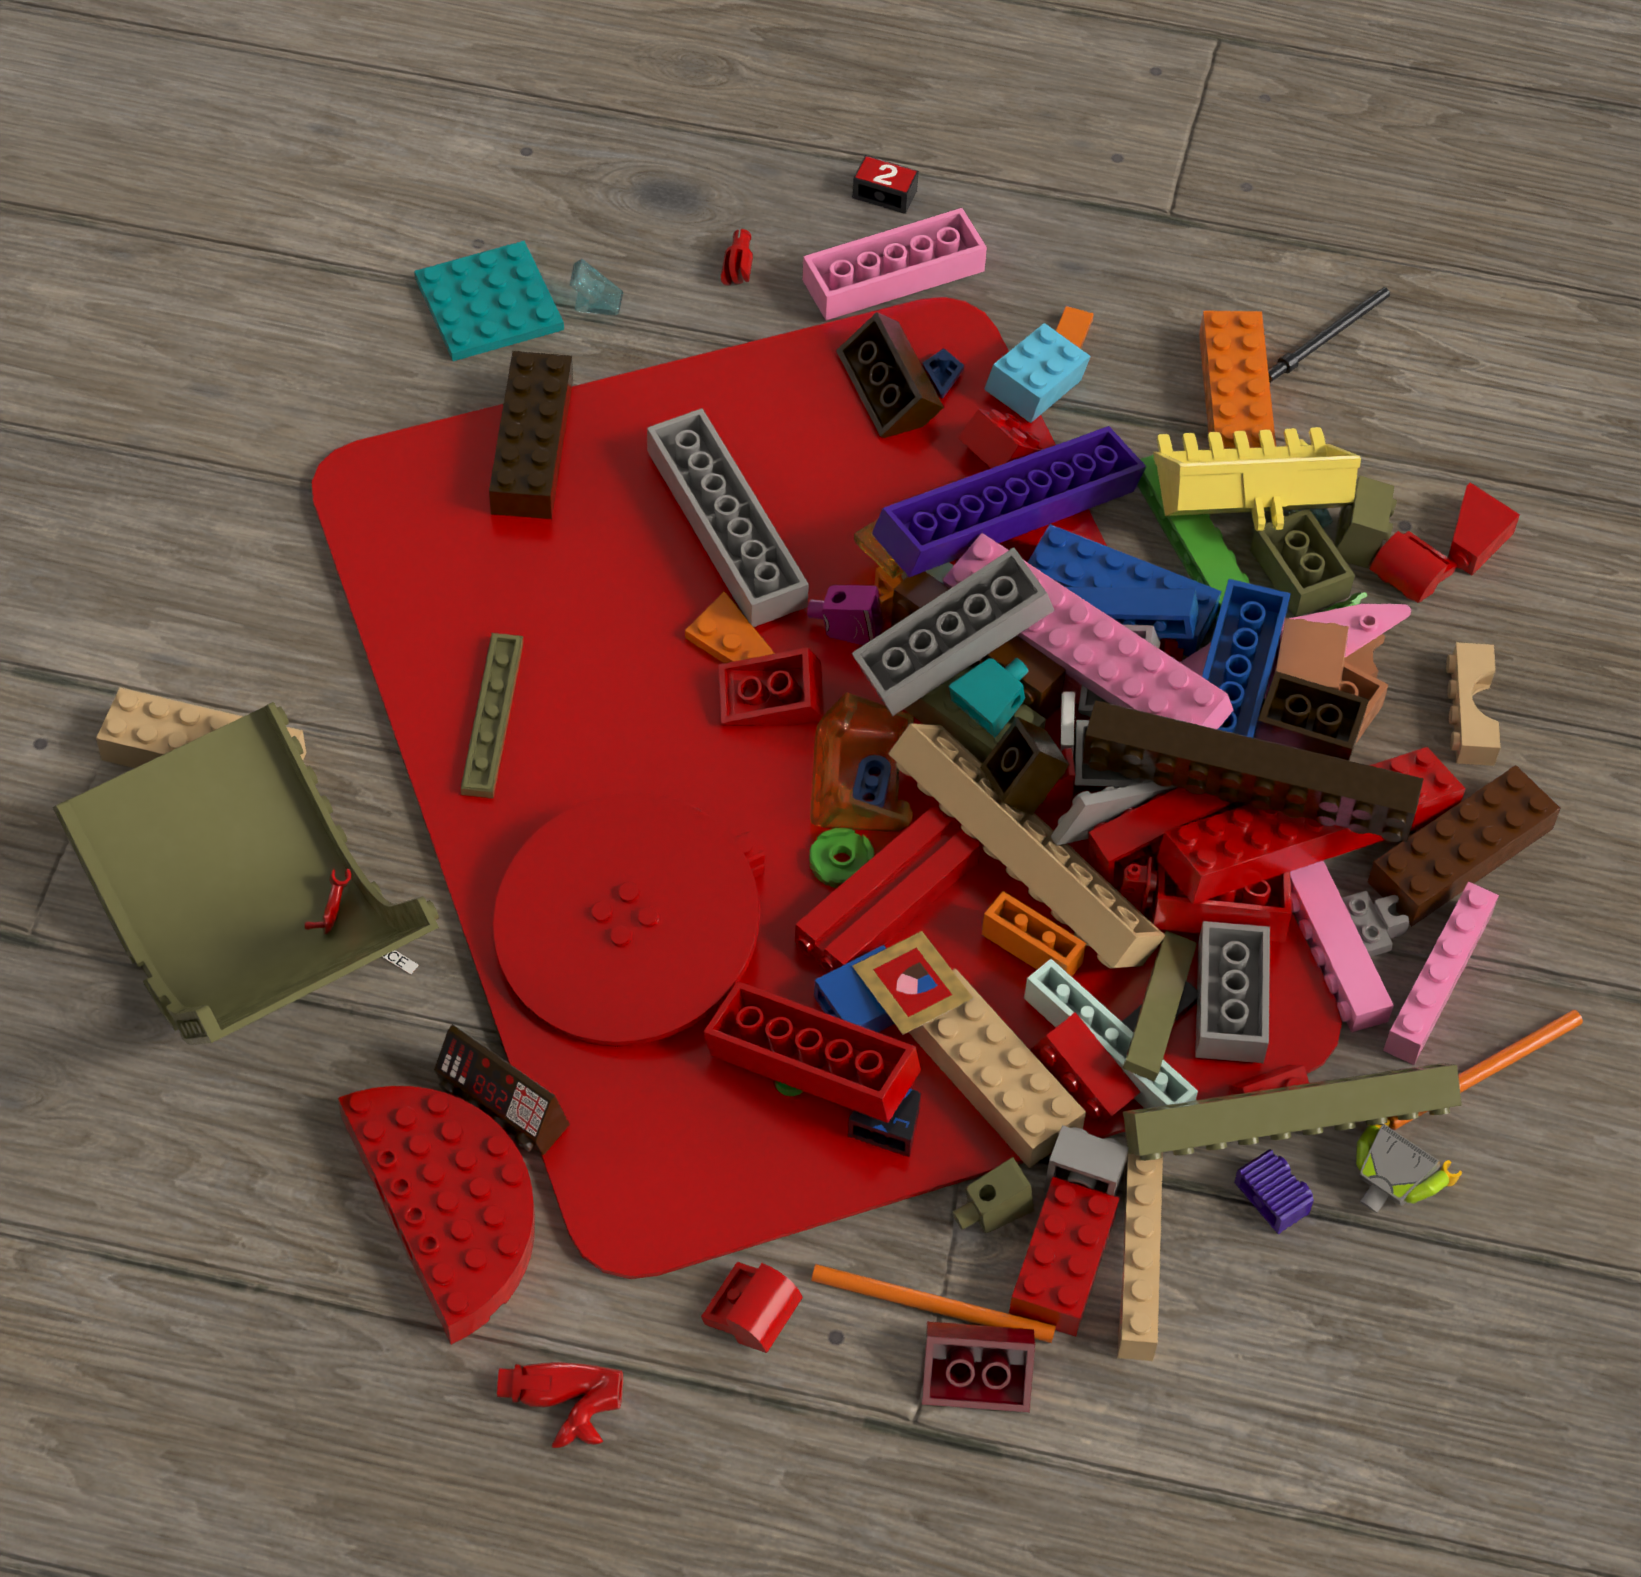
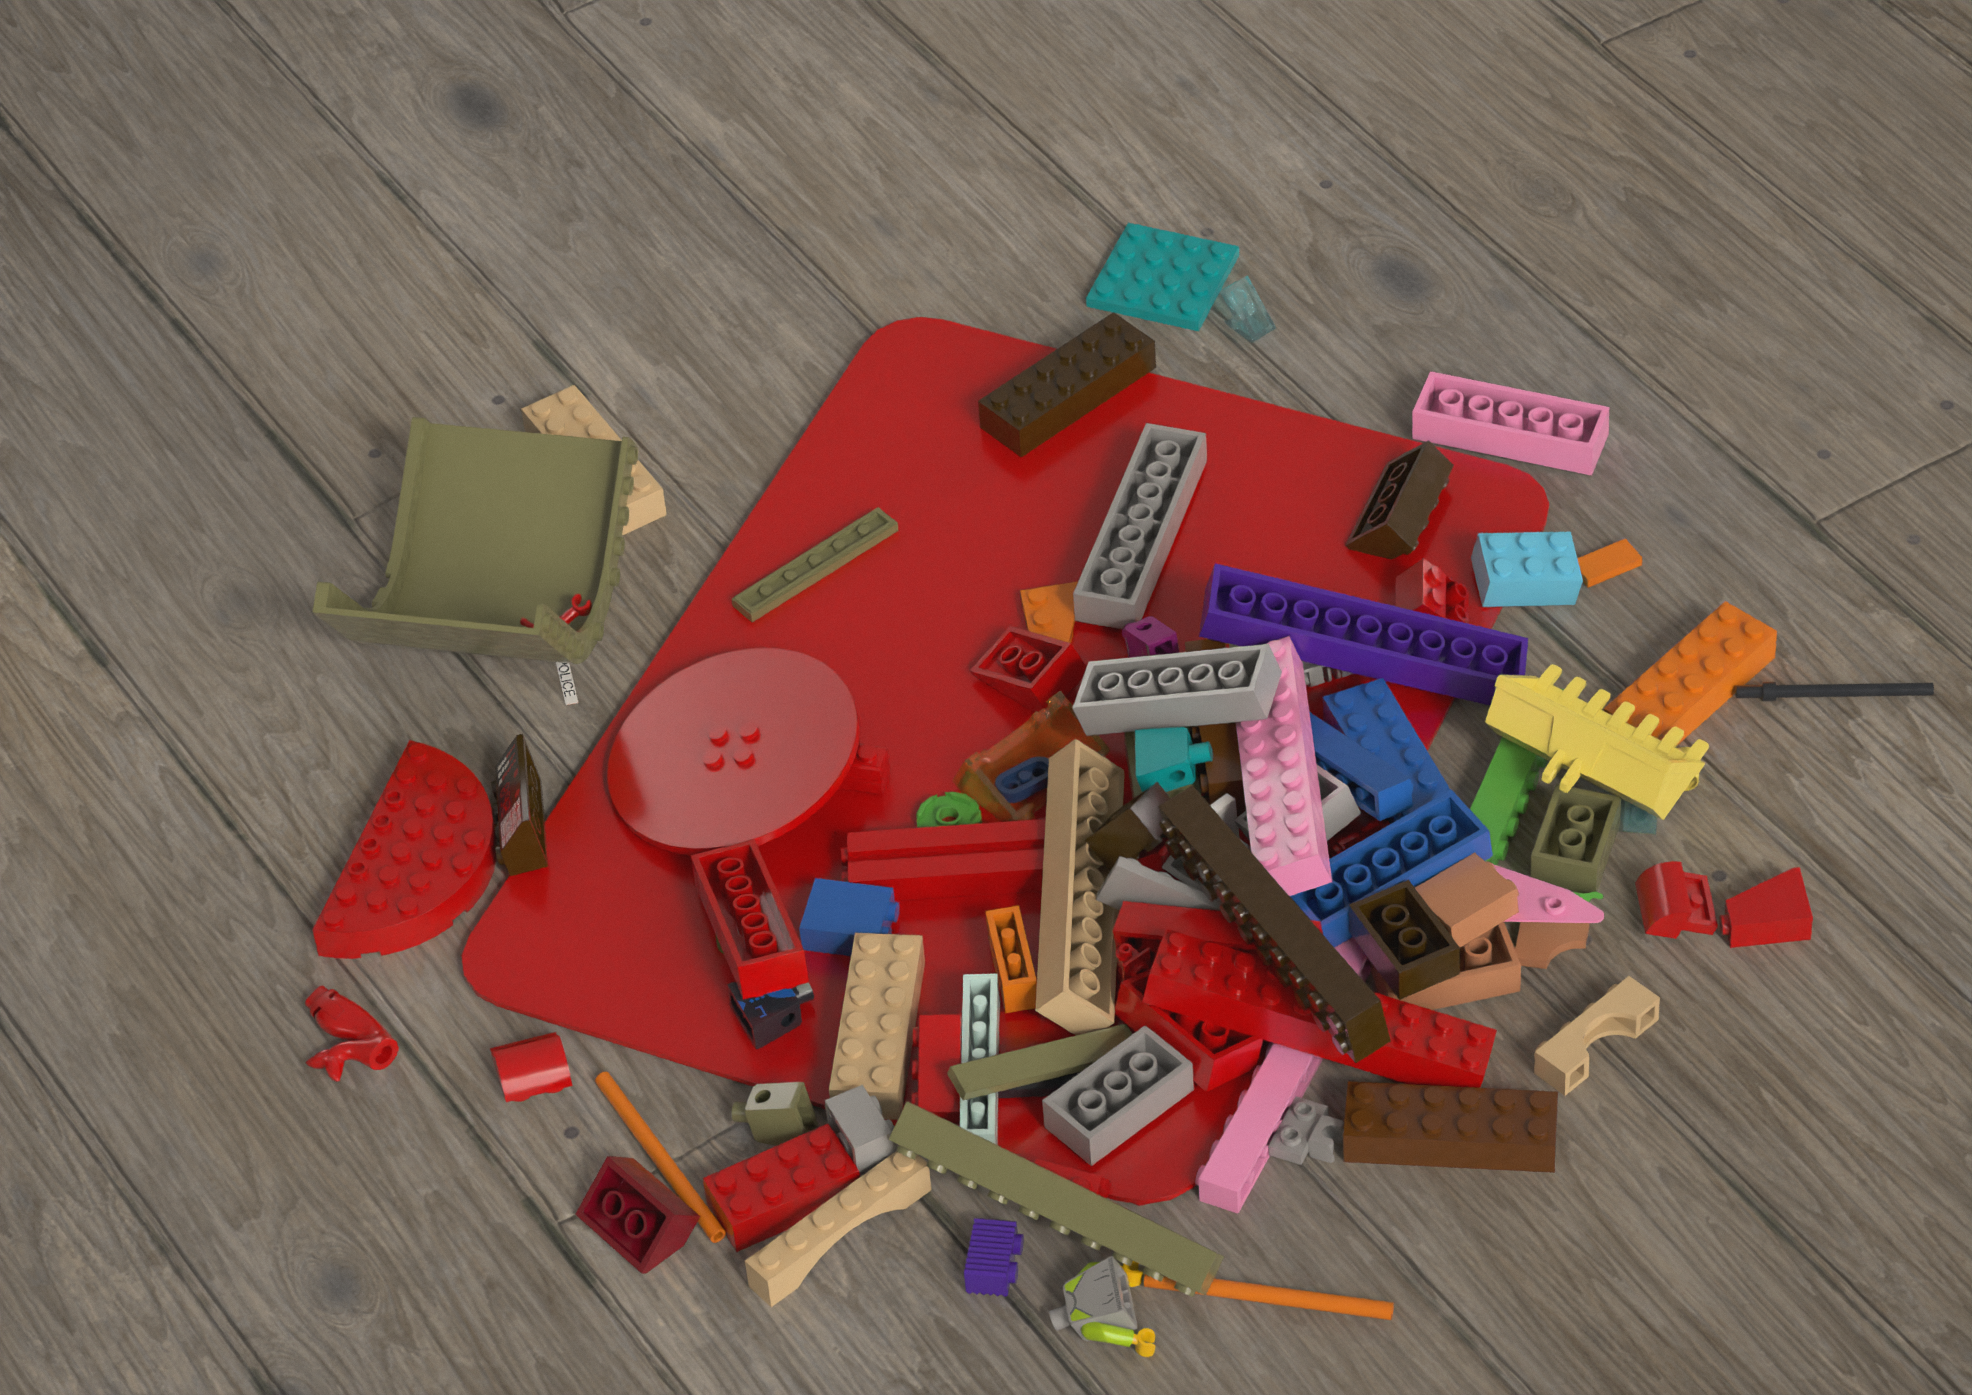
camera: 50 degrees right, 10 degrees down
(737, 259) = (1391, 352): red arm -> none
(885, 184) = (1583, 361): brick -> none
(912, 982) = (876, 922): sticker -> none
(942, 371) = (1453, 525): dark blue piece -> none
(1365, 521) = (1663, 835): olive brick -> none
(1440, 973) = (1313, 1201): bright pink brick -> none

